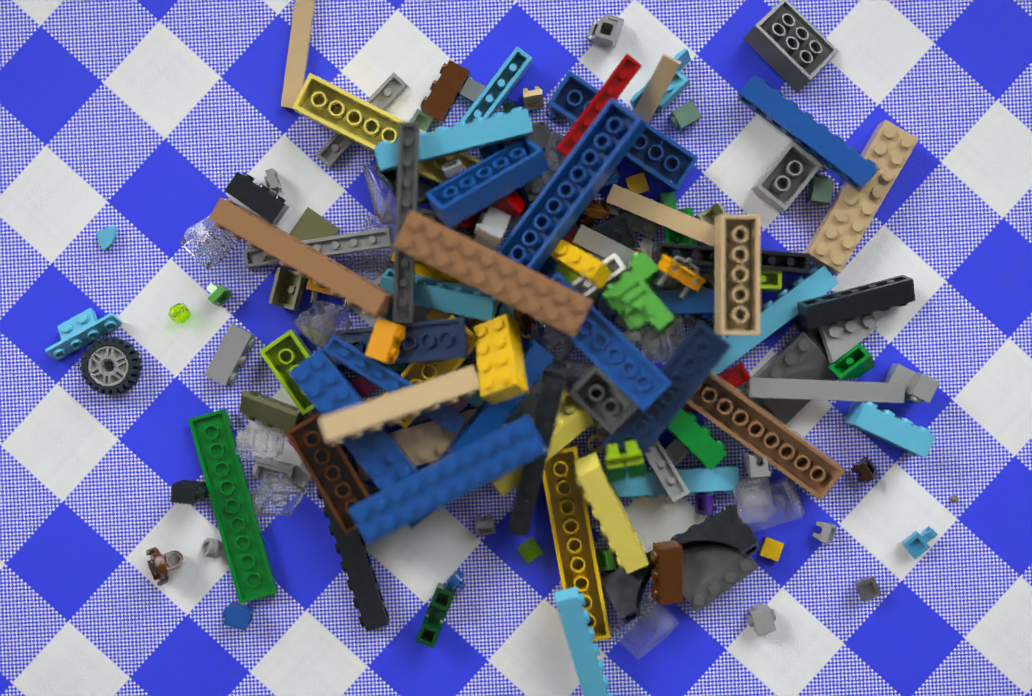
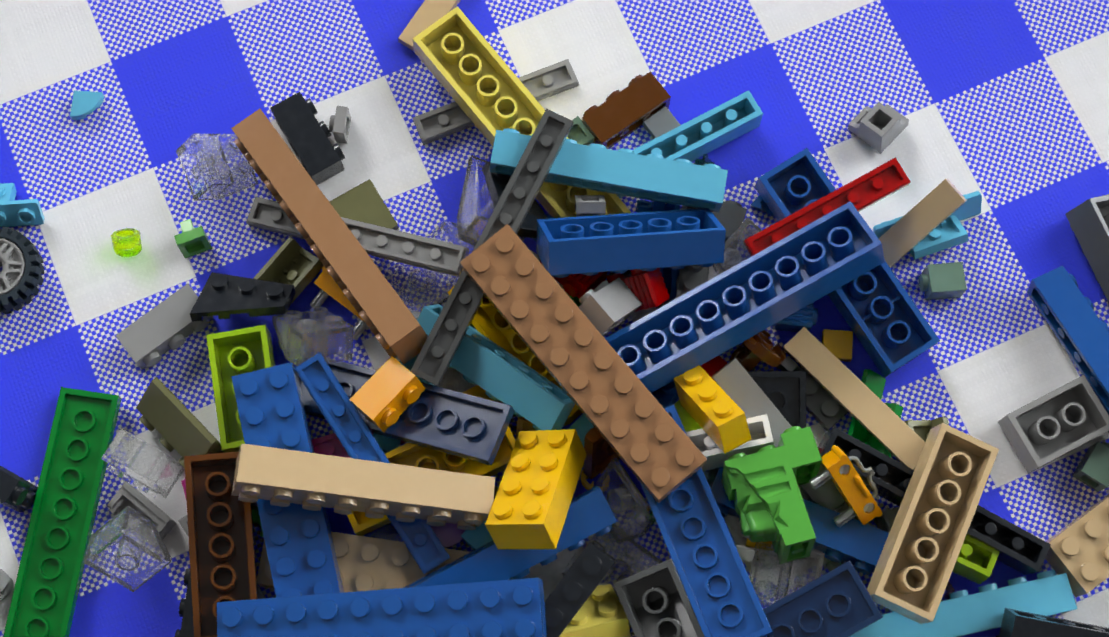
camera: 25 degrees right, 15 degrees down
(267, 317) = (239, 295): none -> black wing
(533, 99) = (741, 170): tan tile -> none

